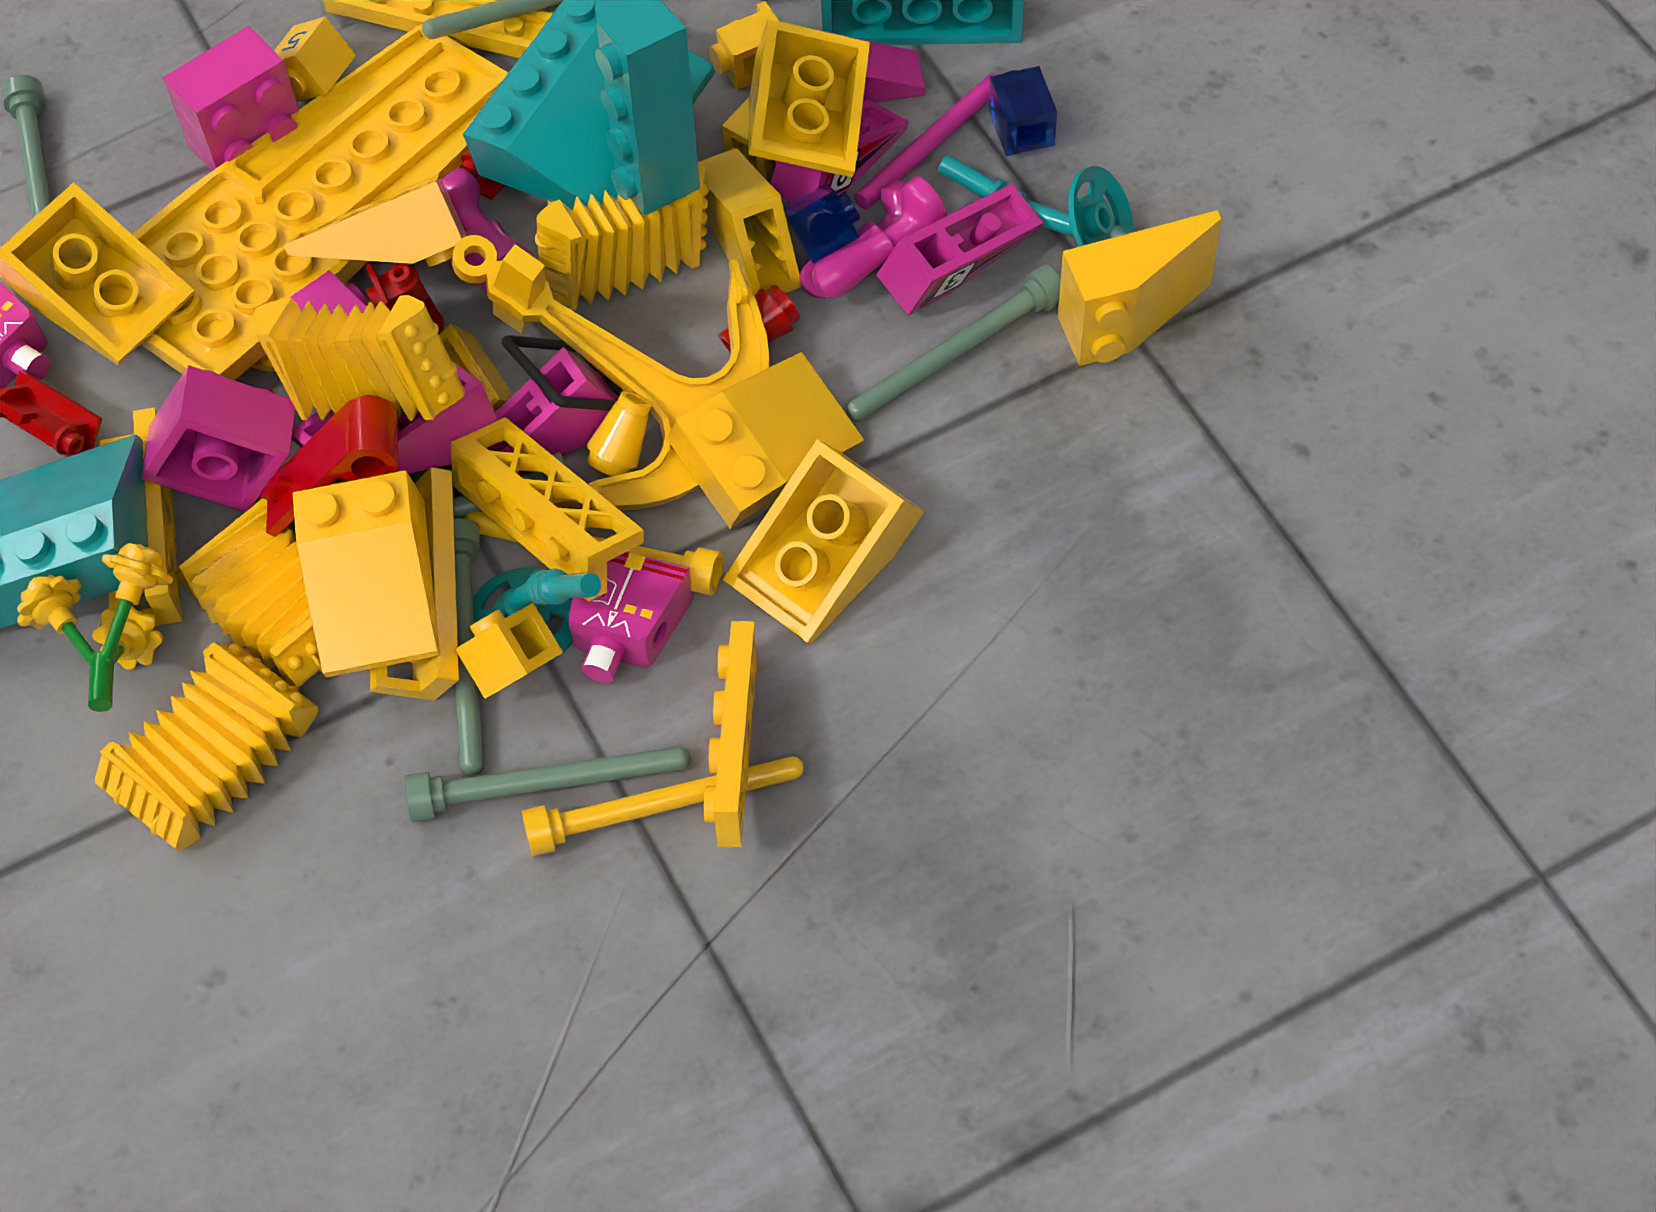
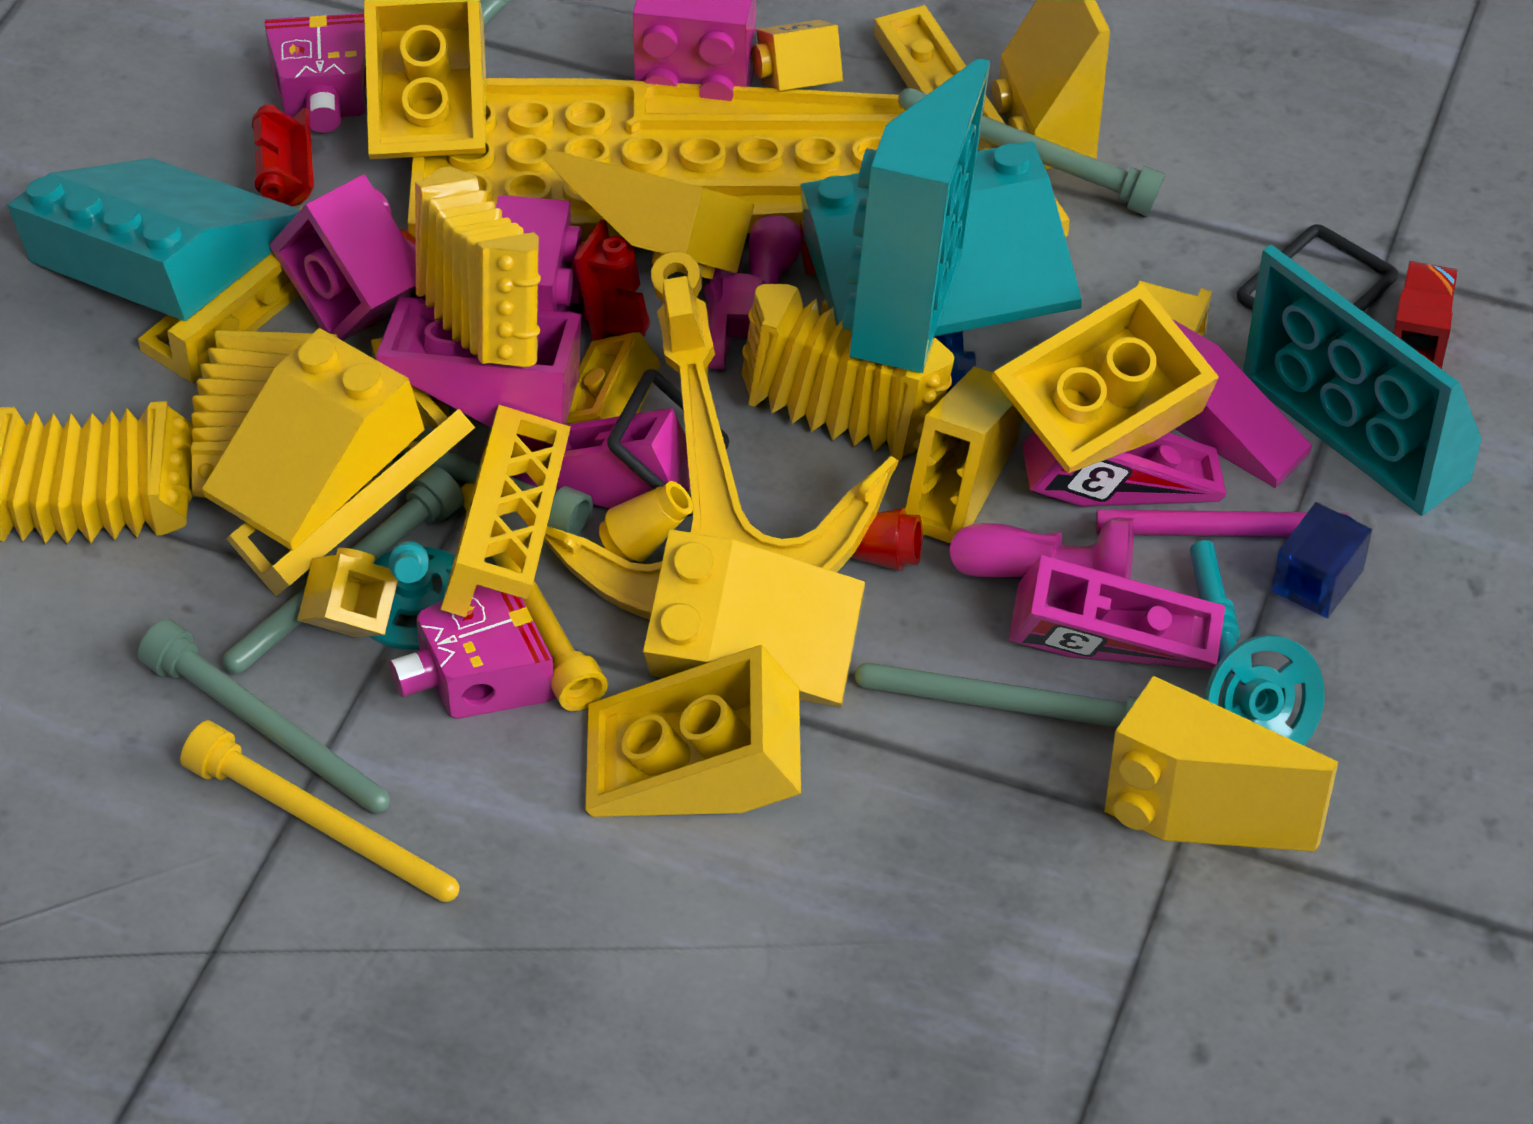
camera: 45 degrees right, 10 degrees down
(124, 632) = (131, 347): yellow plant -> none
(351, 445) = (406, 333): red door -> none
(731, 752) = (421, 811): yellow plate -> none
(823, 221) = (1012, 495): clear blue brick -> none

